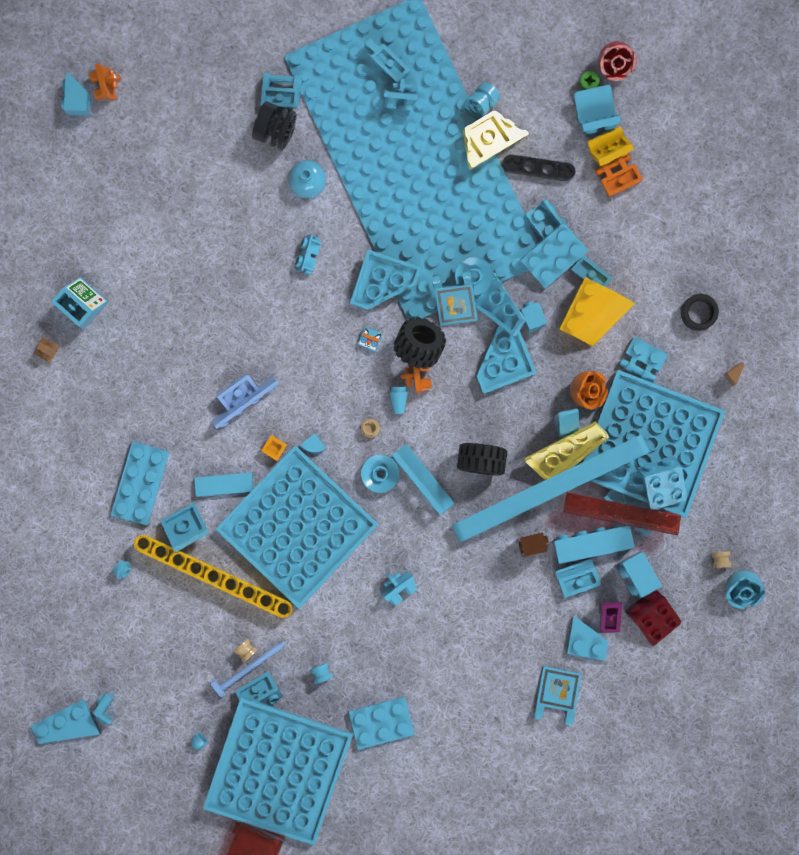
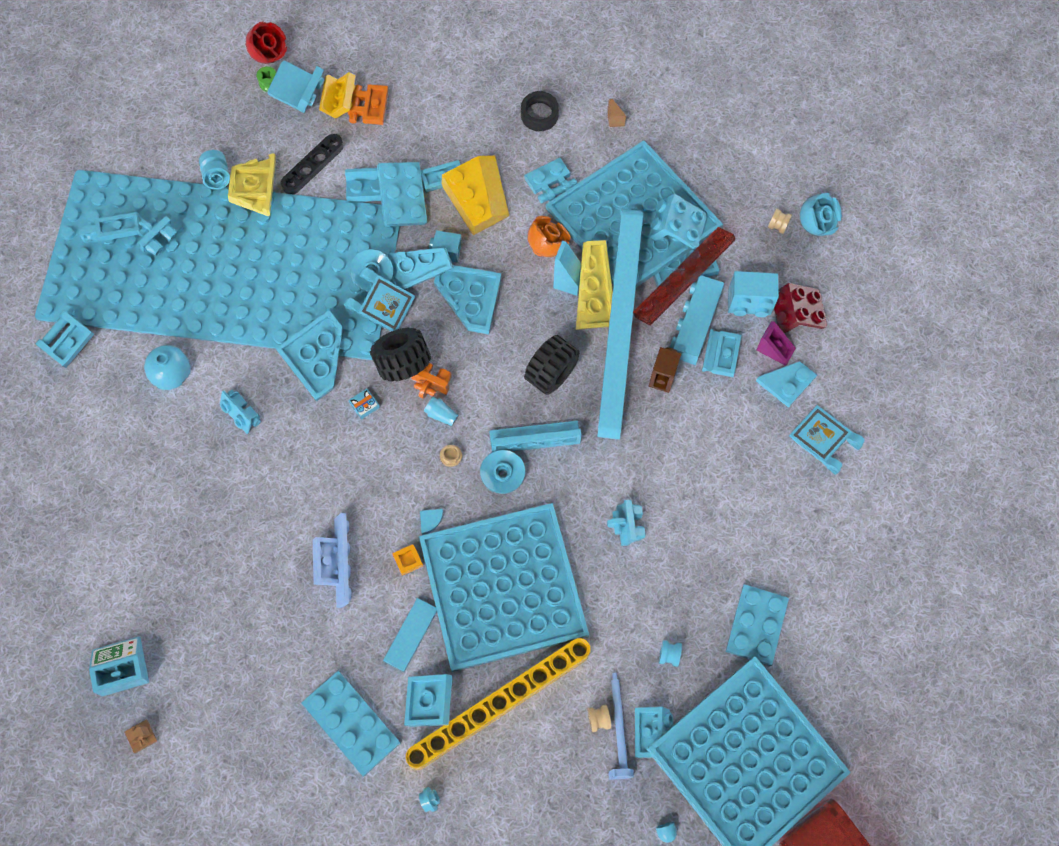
camera: 60 degrees left, 15 degrees down
(272, 125) = (92, 361): black wheel -> none

